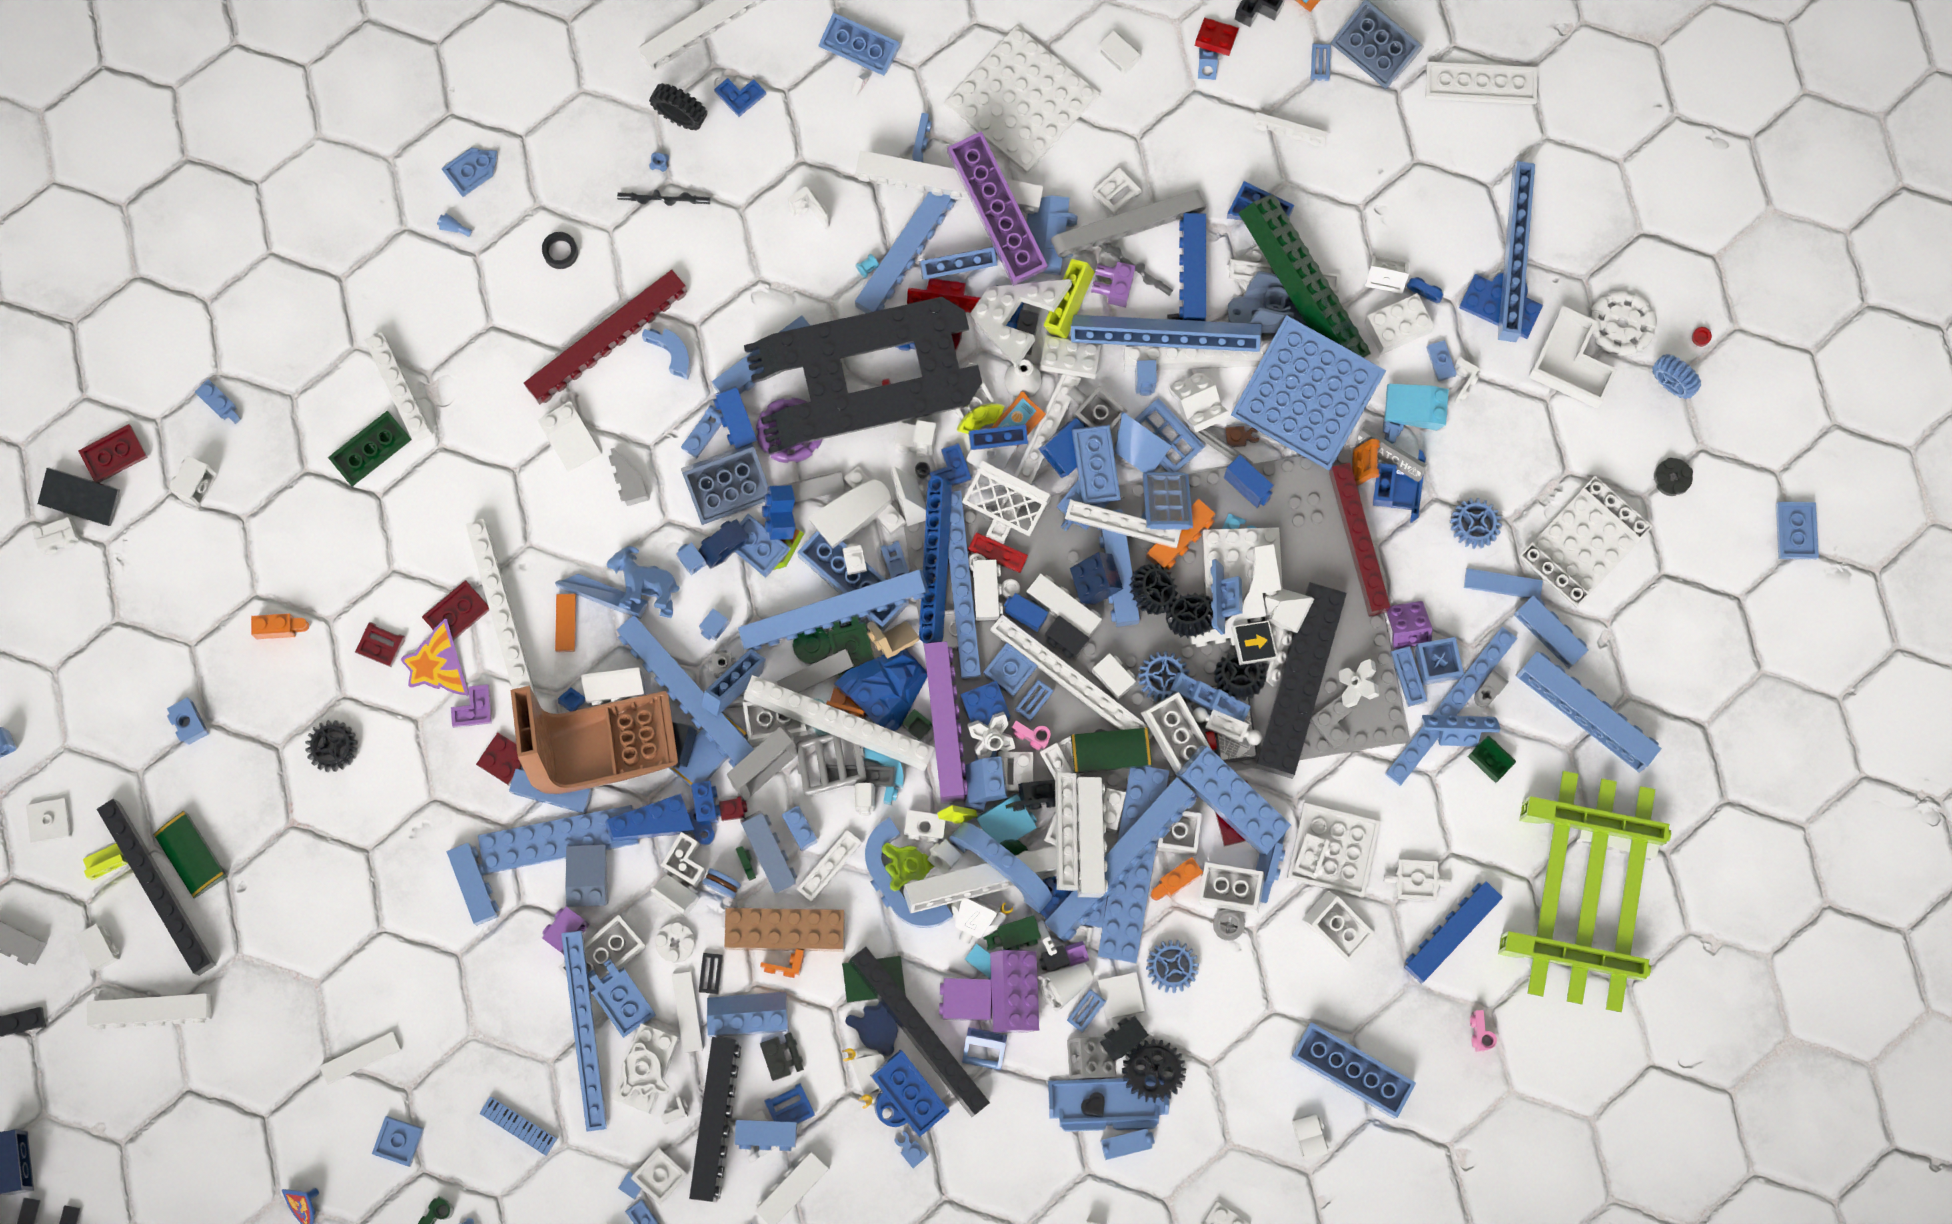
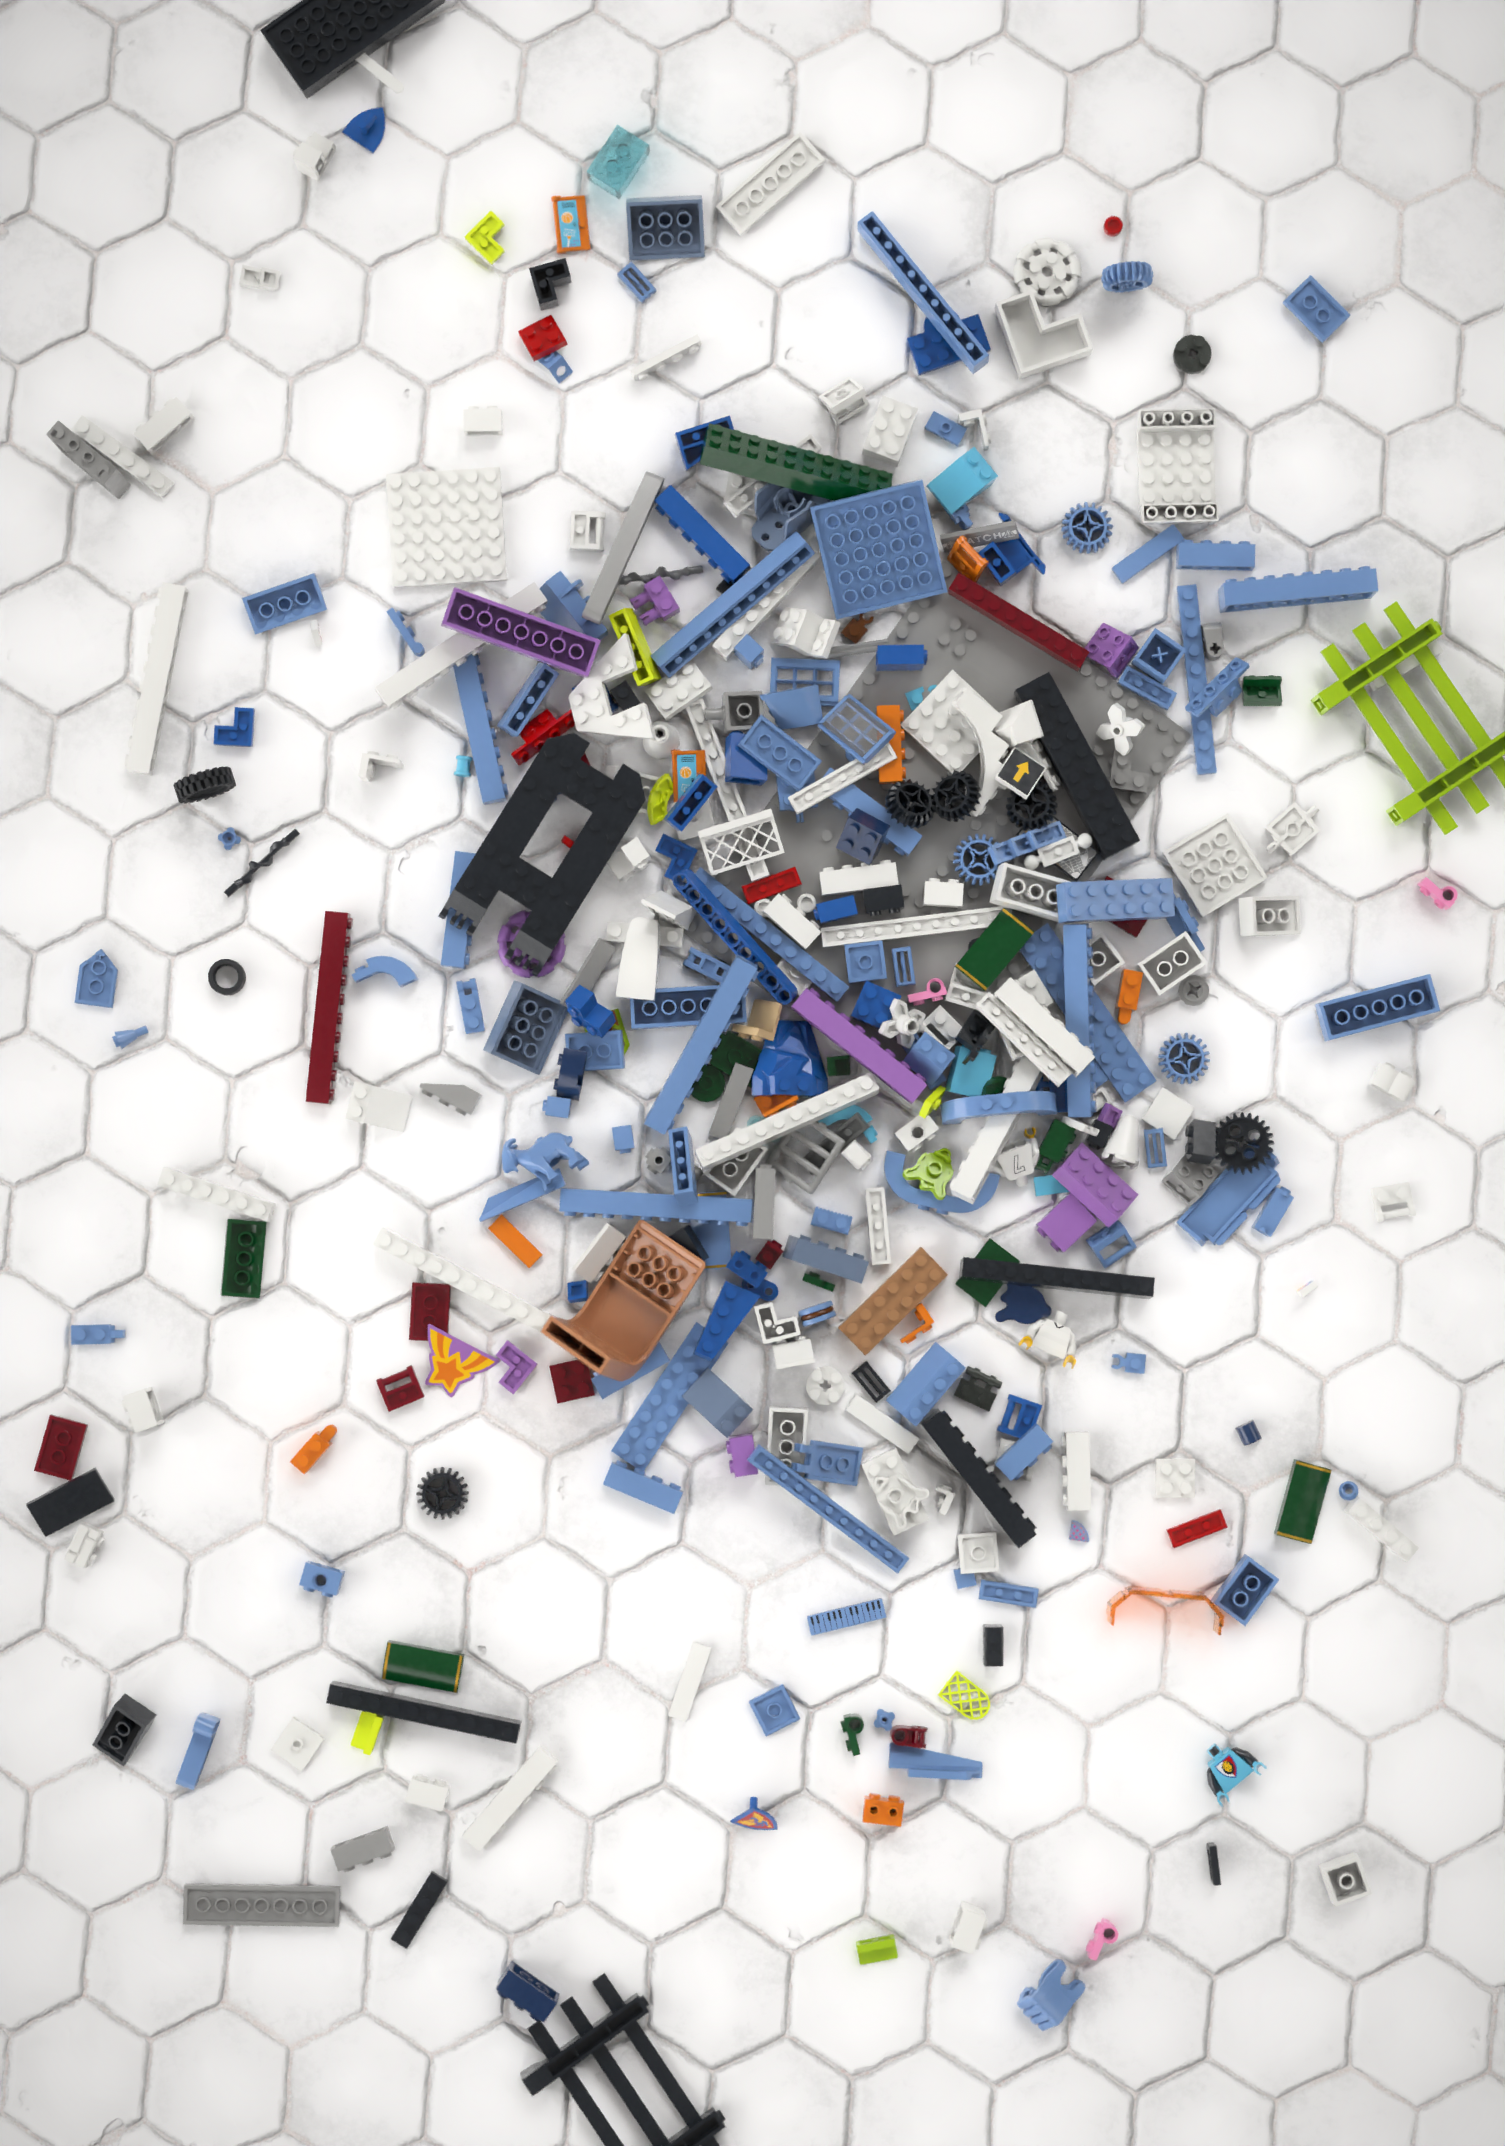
camera: 45 degrees left, 10 degrees up
(734, 417) = (485, 974): blue brick -> none
(854, 559) = (678, 993): white bracket -> none
(907, 1096) = (1093, 1330): blue plate -> none
(922, 467) = (654, 875): black hinge -> none
(944, 856) = (951, 1140): white brick -> none
(1094, 1105) = (1225, 1207): black tile -> none
(1210, 738) = (1055, 872): red tile -> none
(1226, 596) = (969, 759): medium blue bracket -> none
(1312, 855) = (1206, 885): white bracket -> none
(1425, 290) = (891, 383): blue plate -> none
(1453, 932) = (1352, 841): blue brick -> none

